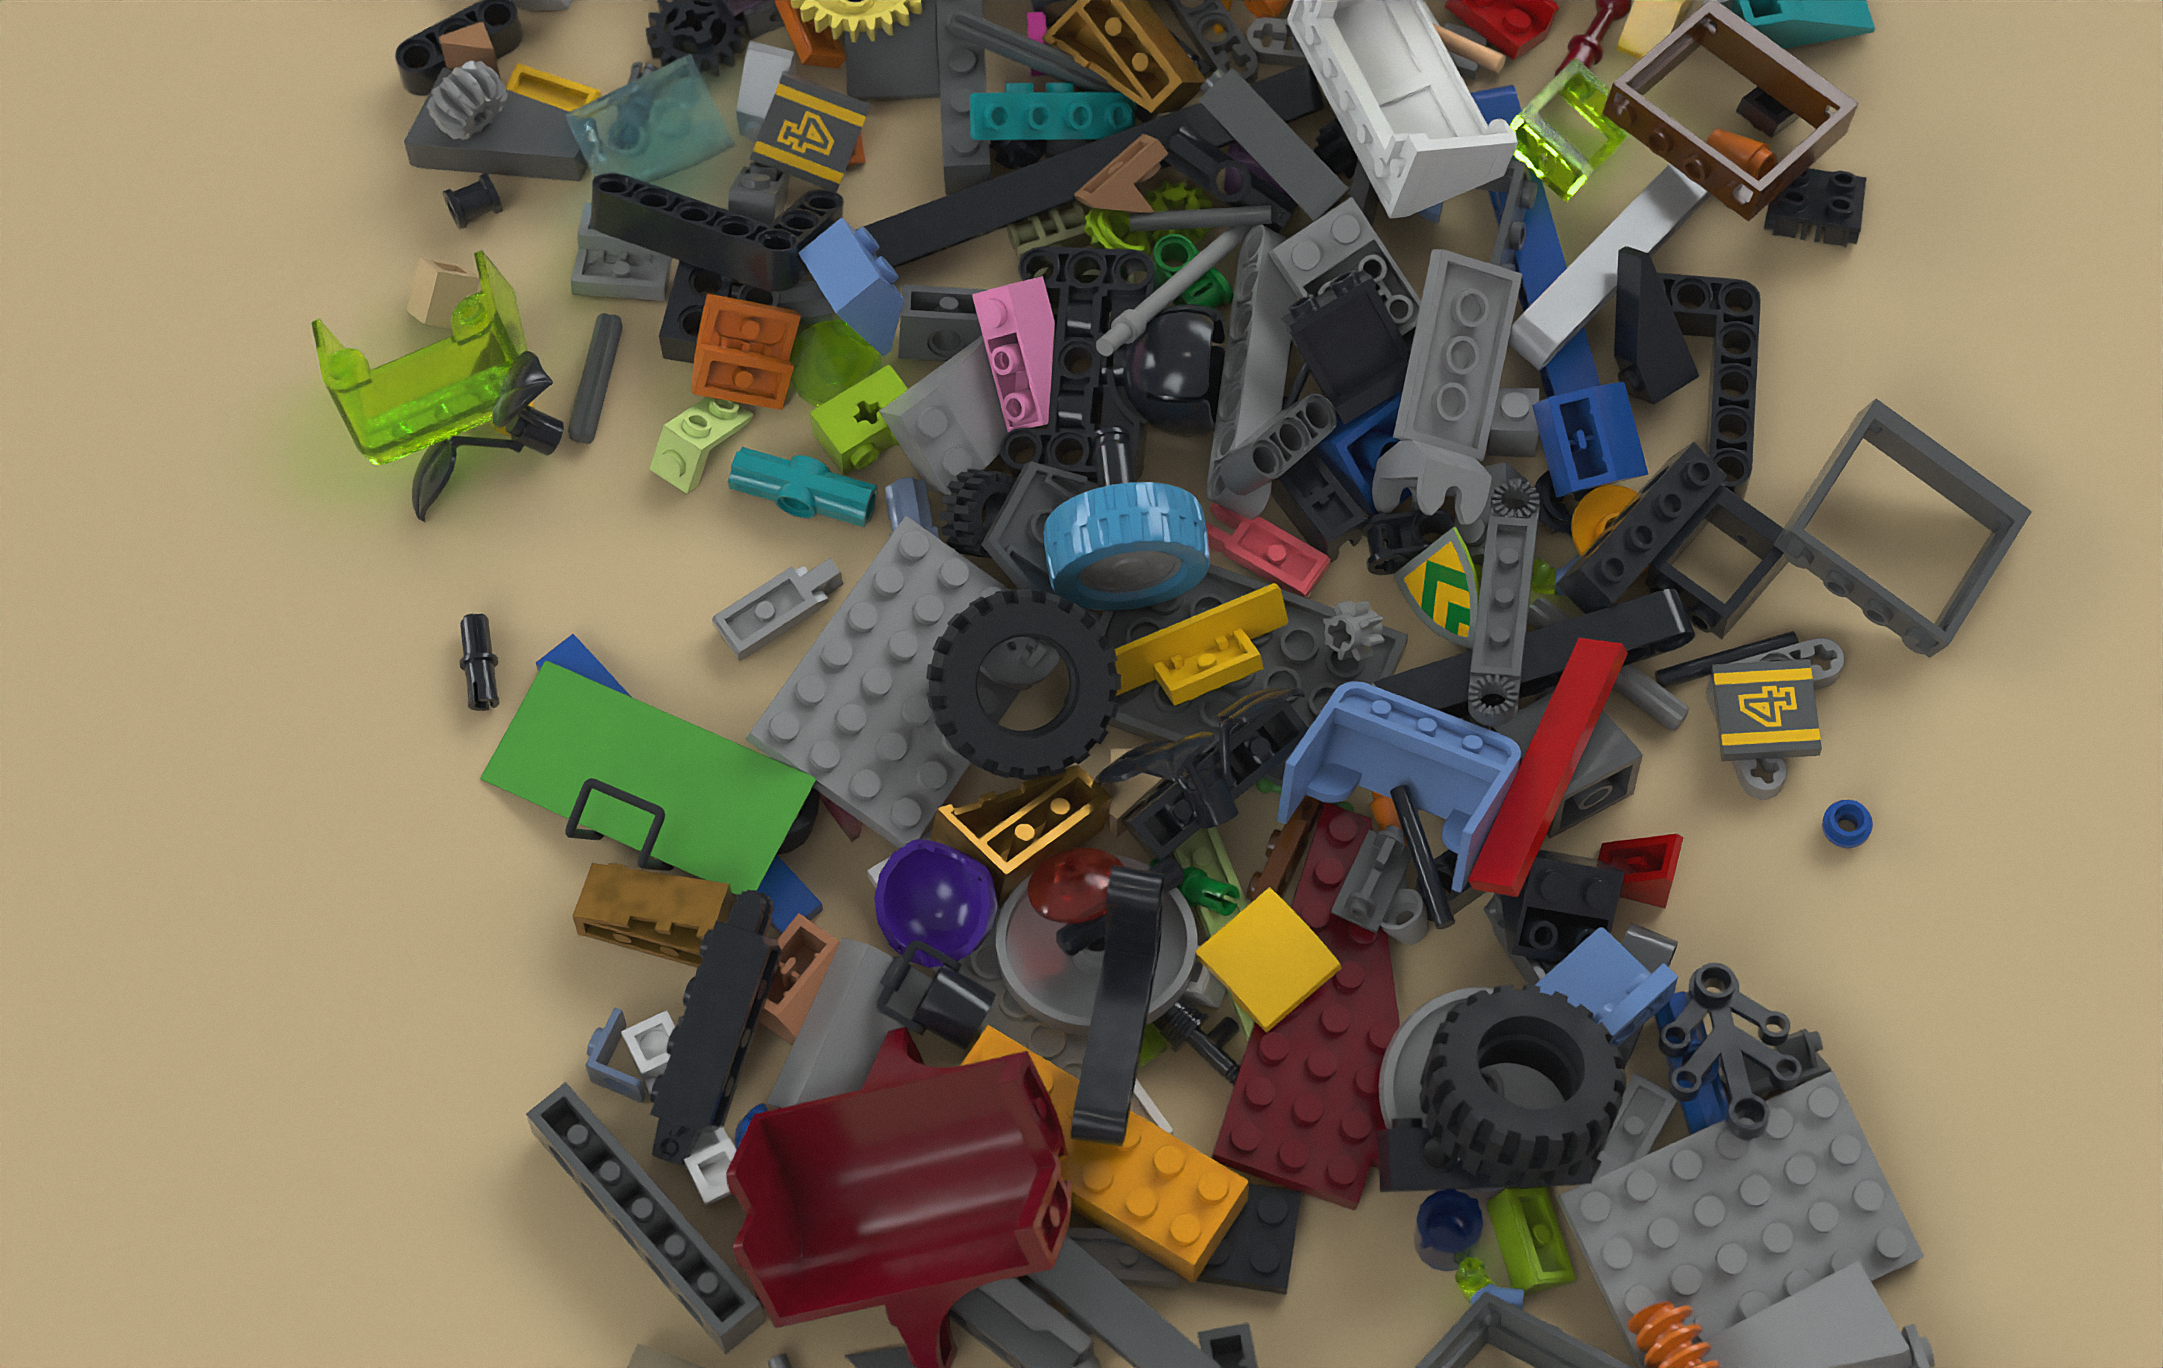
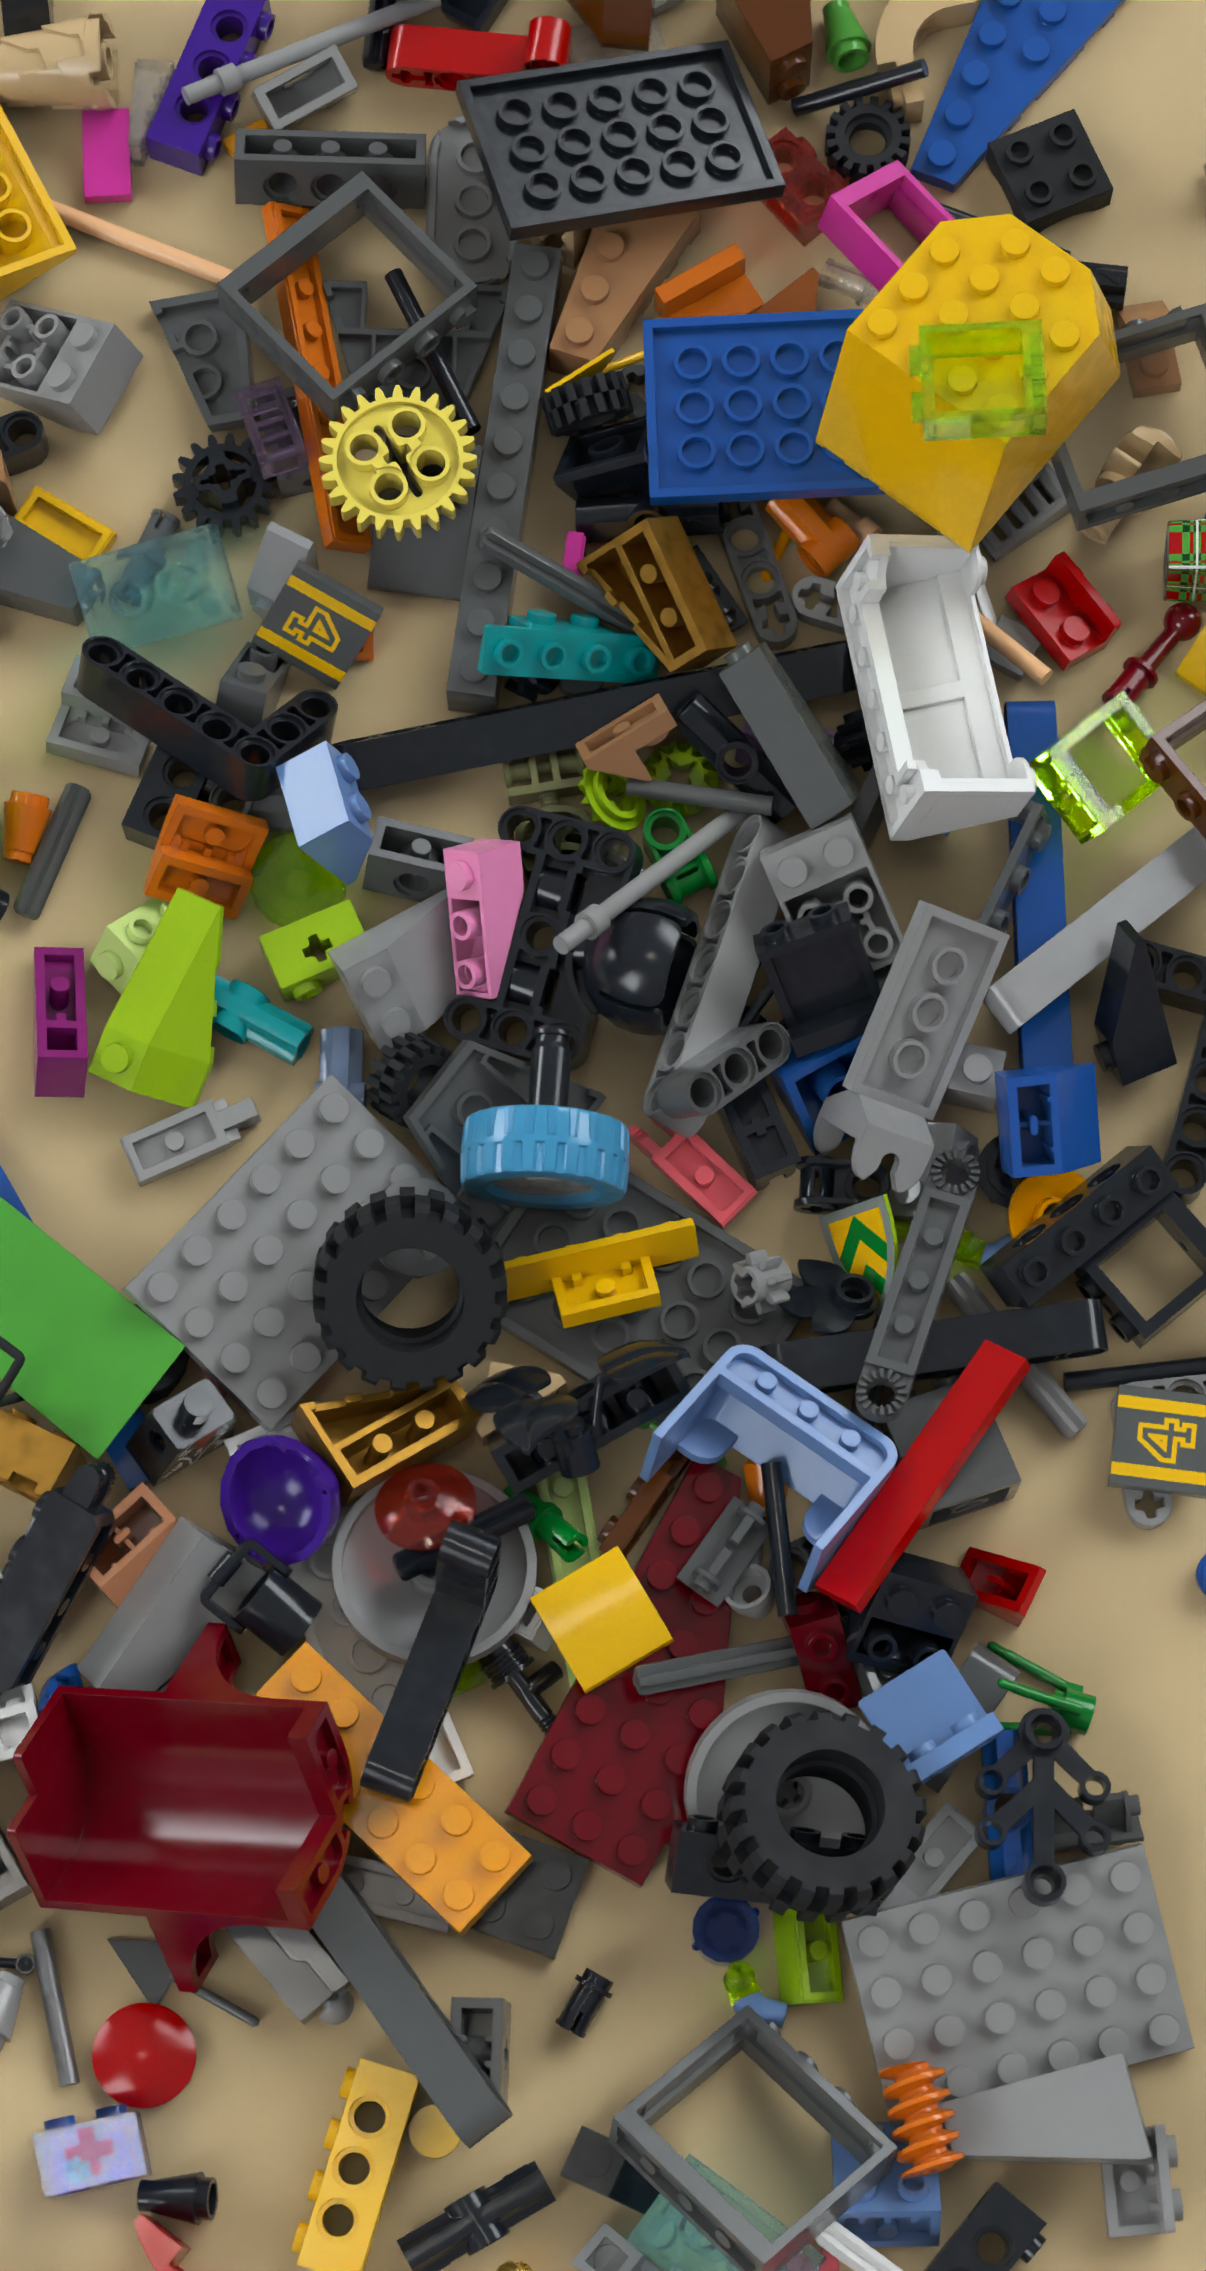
camera: 10 degrees right, 10 degrees up
(564, 358) = (24, 825): none -> orange cone
(634, 527) = (59, 1023): none -> magenta slope
(734, 498) = (165, 1016): none -> lime wedge
(838, 852) = (188, 1424): none -> black torso
(1325, 1323) = (586, 2001): none -> black pin
(1397, 981) = (714, 1666): none -> dark grey axle
(1422, 635) = (830, 1297): none -> black plate
(1480, 948) = (821, 1649): none -> dark red bracket
(1740, 962) = (1069, 1702): none -> green plant

